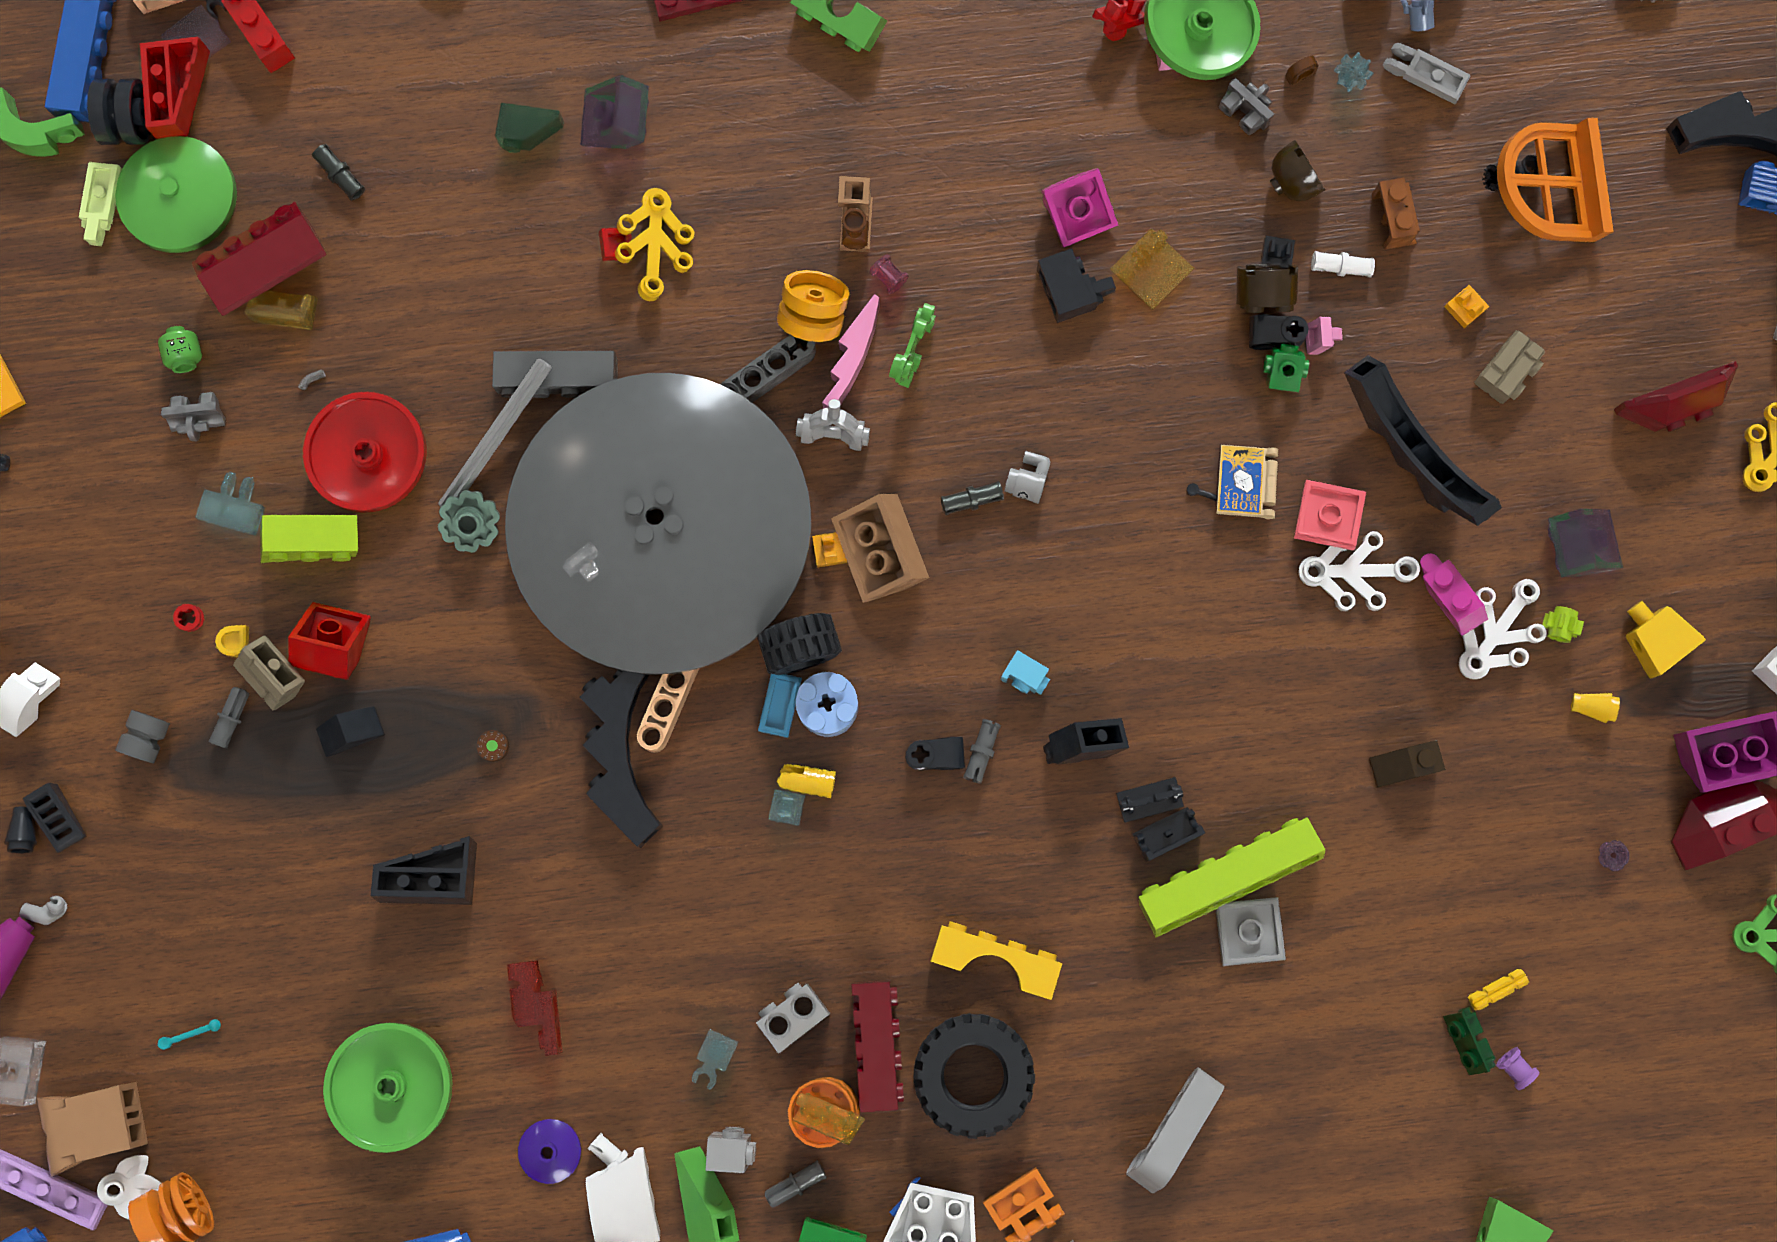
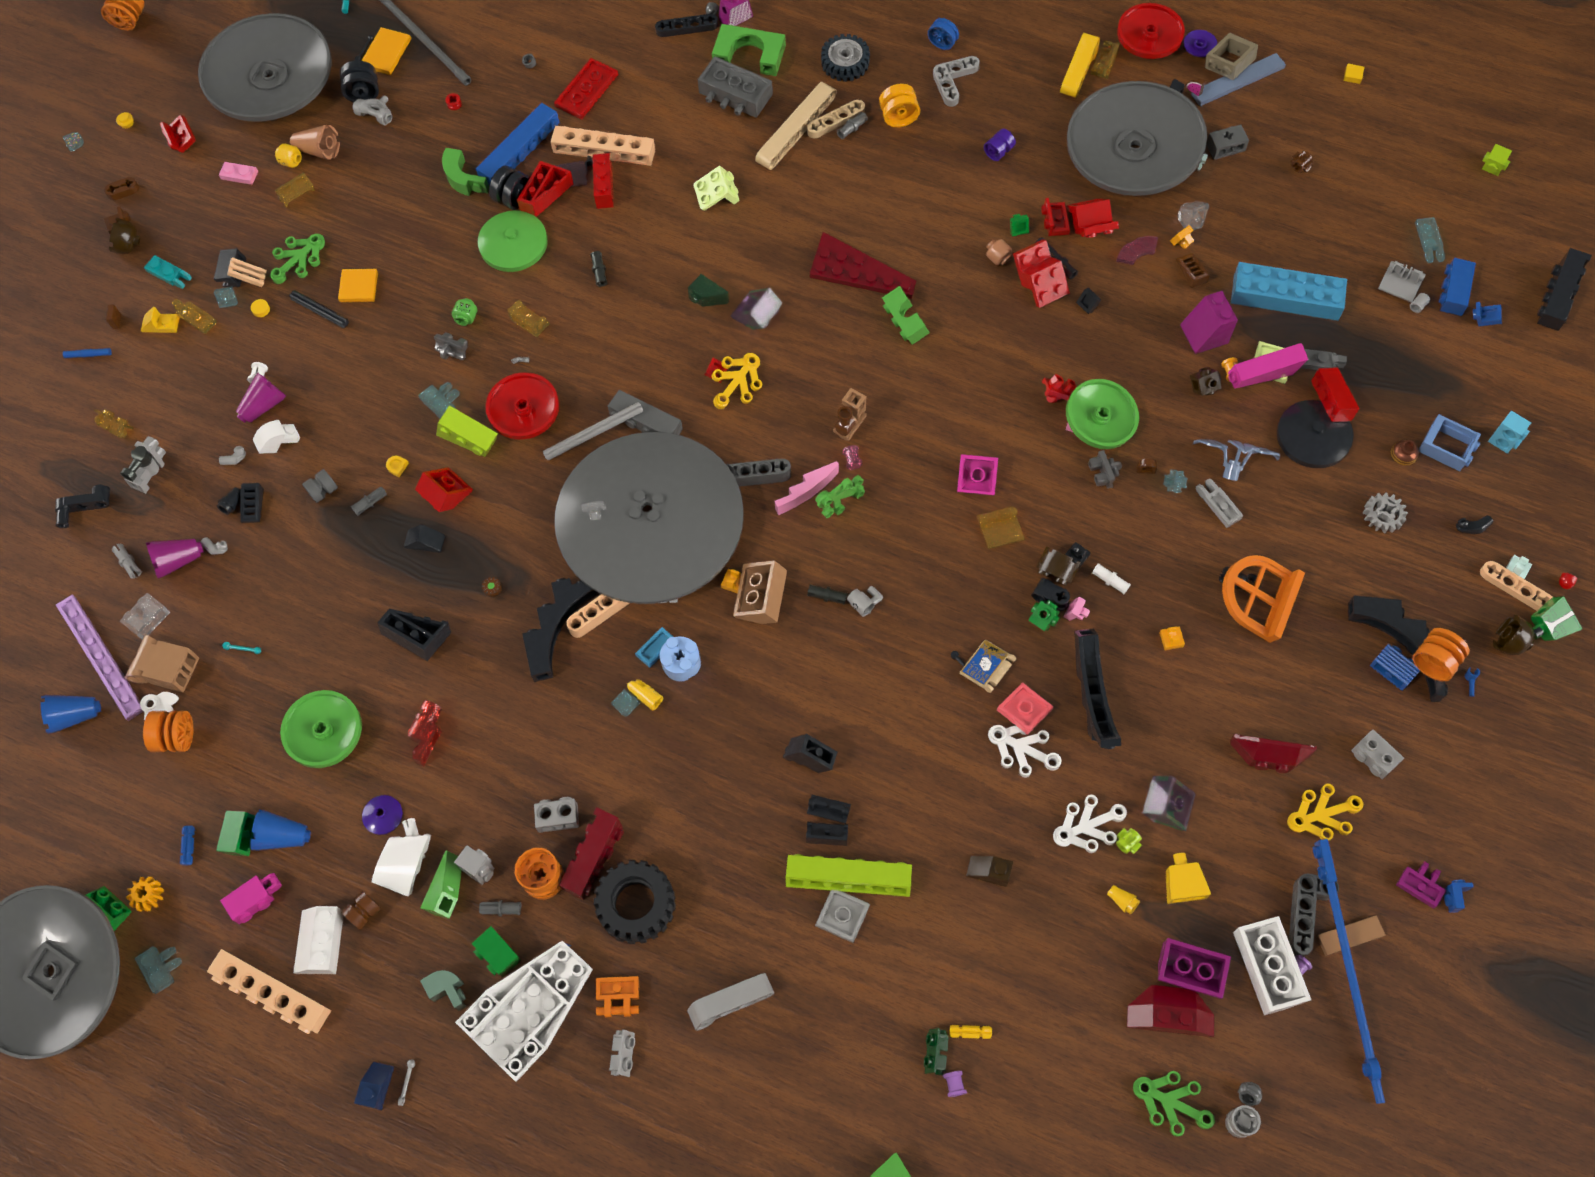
camera: 30 degrees right, 15 degrees down
(98, 201) = (472, 225): yellowish green hinge -> none
(190, 627) = (385, 438): red bush -> none
(258, 258) = (531, 286): dark red slope -> none
(268, 672) = (402, 487): dark tan brick -> none
(468, 521) = (552, 467): sand green plant -> none
(715, 1054) = (503, 812): clear light blue plate -> none
(799, 643) = (683, 616): black tyre -> none
(812, 306) = (799, 449): light orange wheel -> none
(827, 1118) = (537, 870): clear yellow hinge -> none
(846, 426) = (782, 525): light grey piece -> none
(942, 753) = (726, 719): black piece -> none
(982, 751) = (750, 730): dark grey pin -> none
(1026, 674) = (799, 701): medium azure brick -> none
(1035, 972) = (670, 829): yellow arch -> none
(1069, 290) = (947, 513): black hinge -> none
(1295, 174) = (1110, 517): dark brown cylinder -> none
(1399, 212) = (1158, 567): dark orange window -> none
(1453, 594) = (1070, 787): dark pink brick -> none
(1509, 368) = (1178, 682): dark tan brick -> none
(1619, 849) = (1090, 997): clear purple plate -> none

